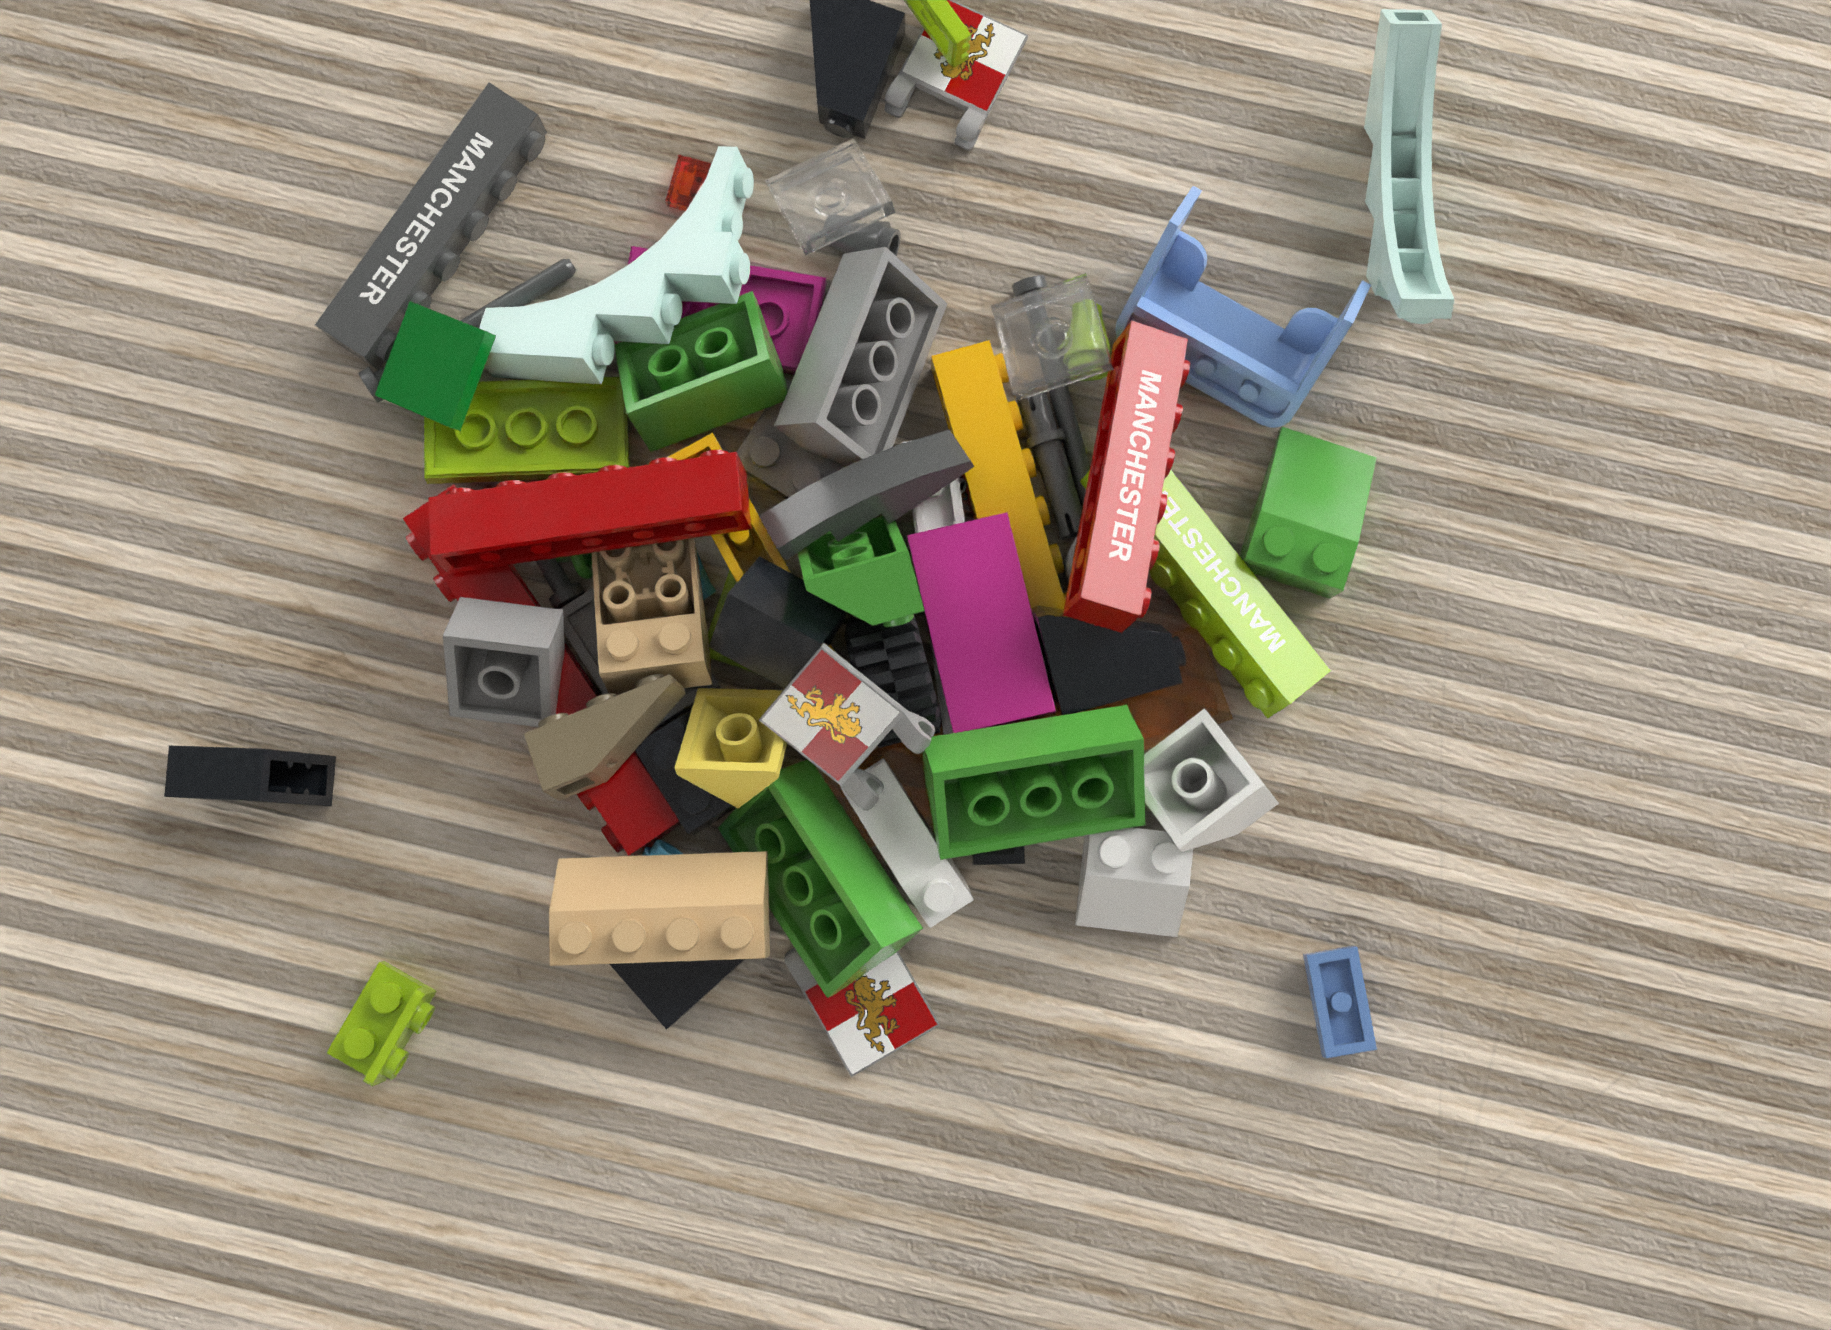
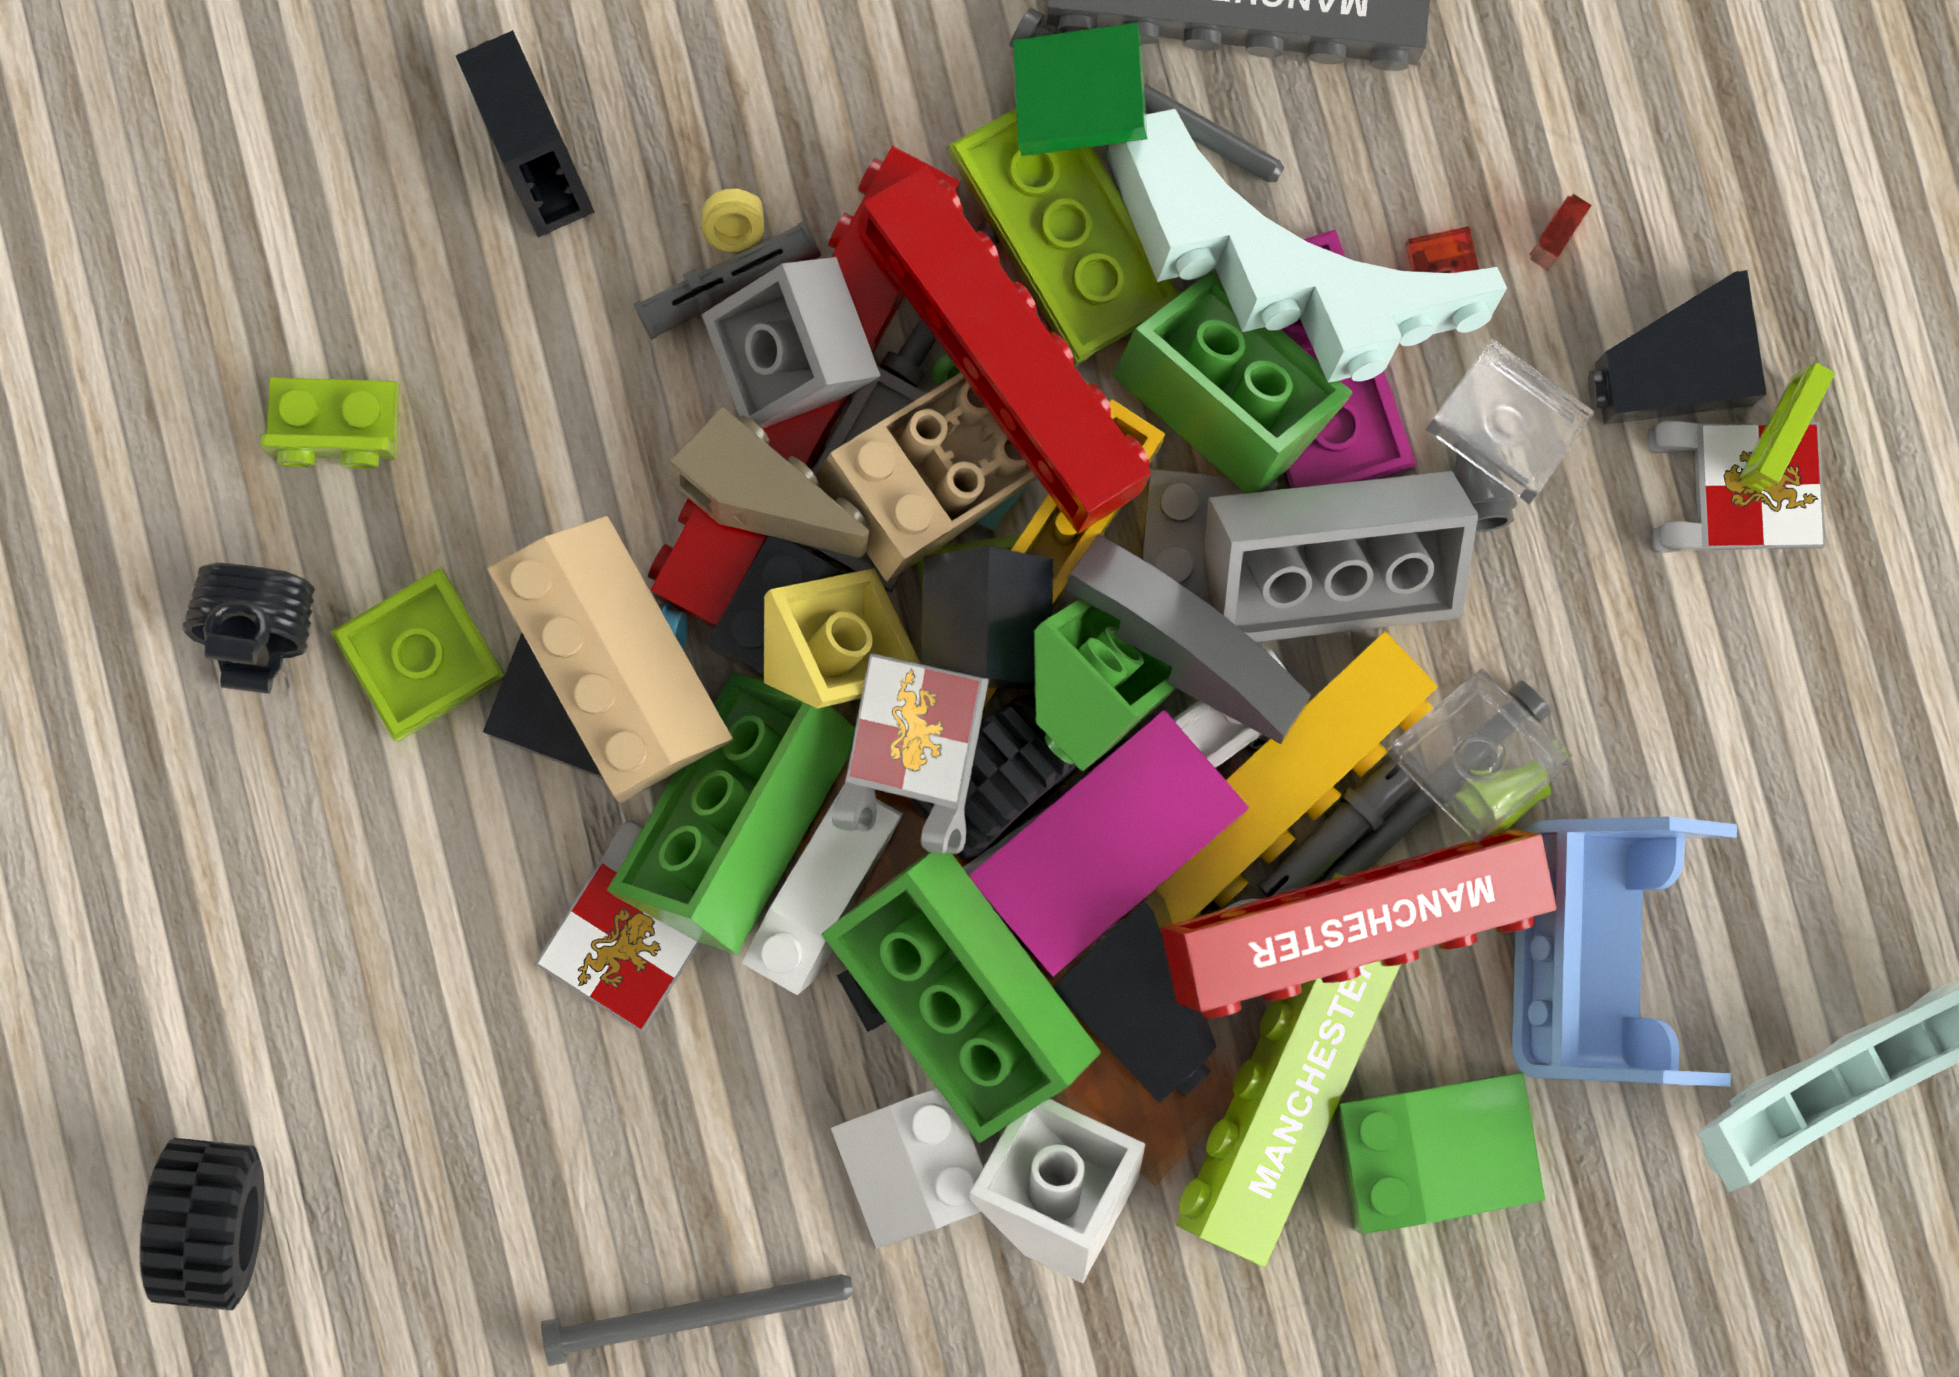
camera: 60 degrees right, 0 degrees up
(395, 660) = (733, 220): none -> light yellow tile
(434, 704) = (659, 311): none -> dark grey pin
(485, 1159) = (243, 610): none -> black piece
(585, 1047) = (418, 654): none -> lime tile
(716, 94) = (1559, 231): none -> clear red tile
(1129, 1195) = (688, 1316): none -> dark grey bar

